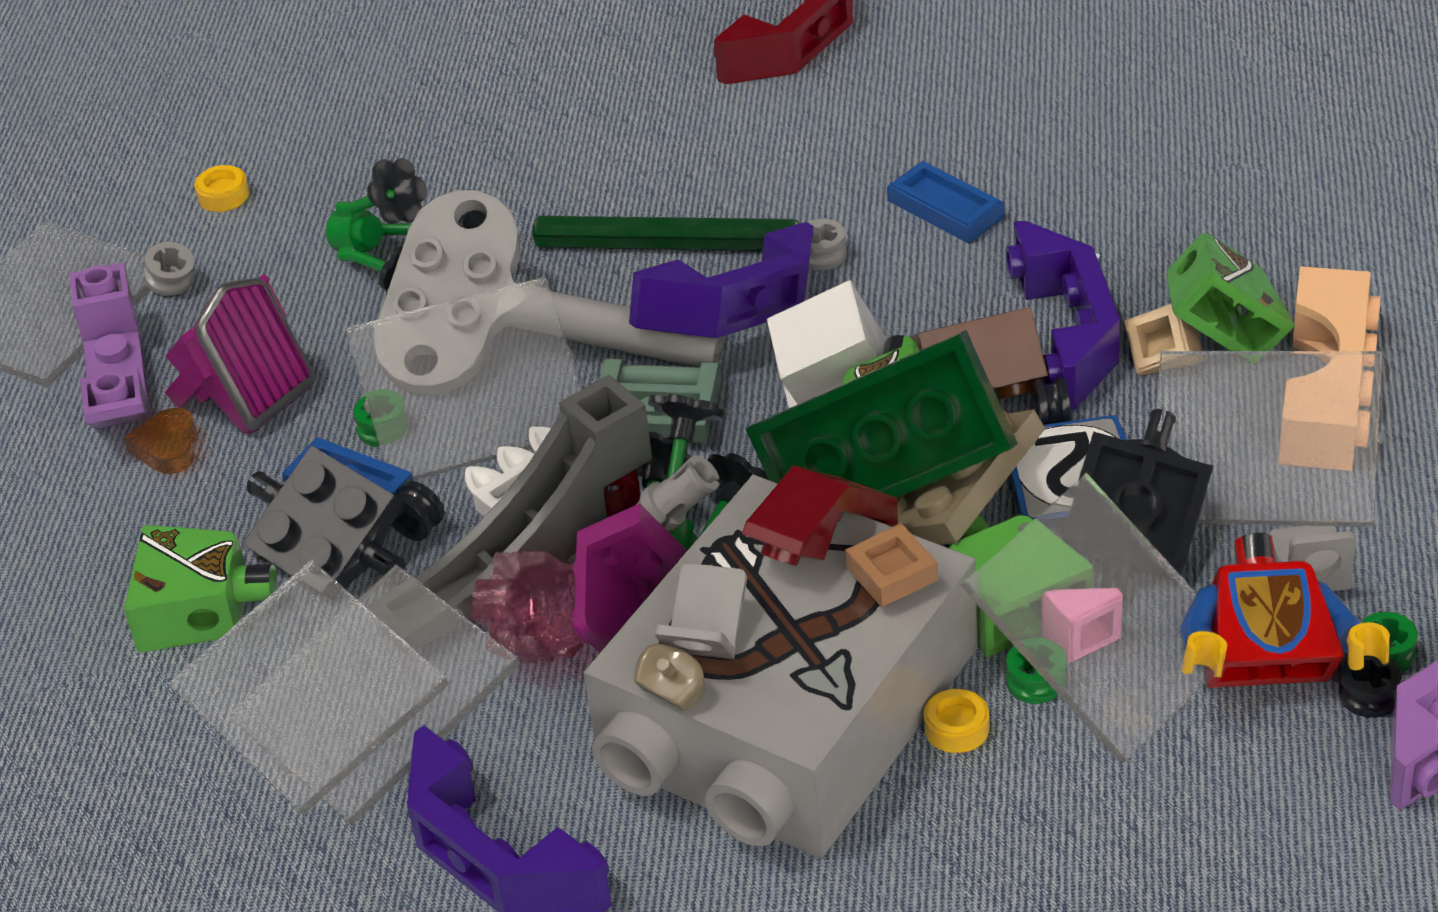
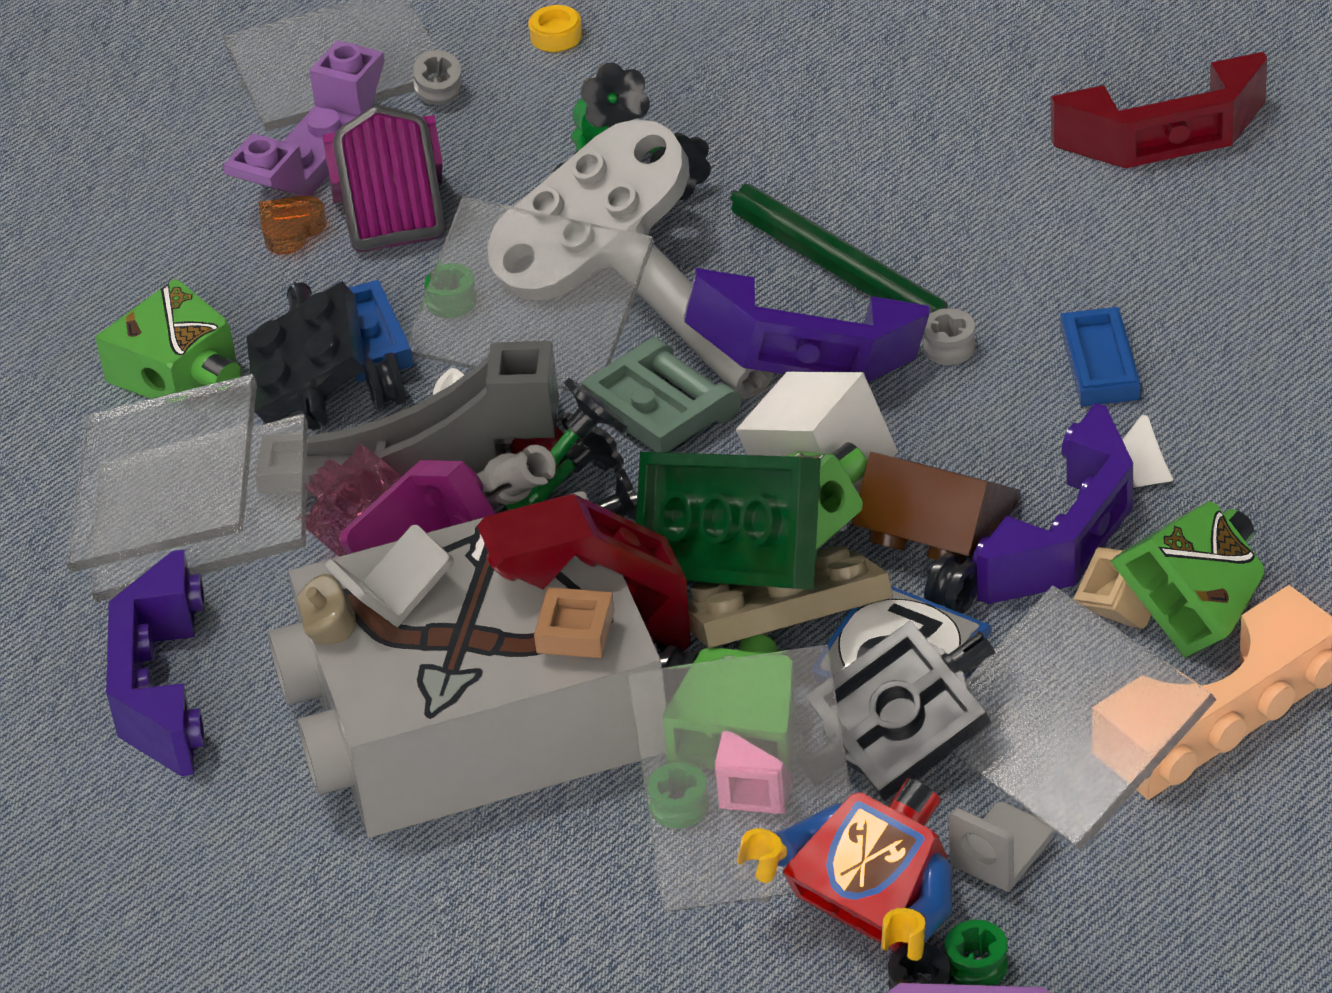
camera: 40 degrees right, 0 degrees up
(956, 720) = (577, 796): yellow tile -> none

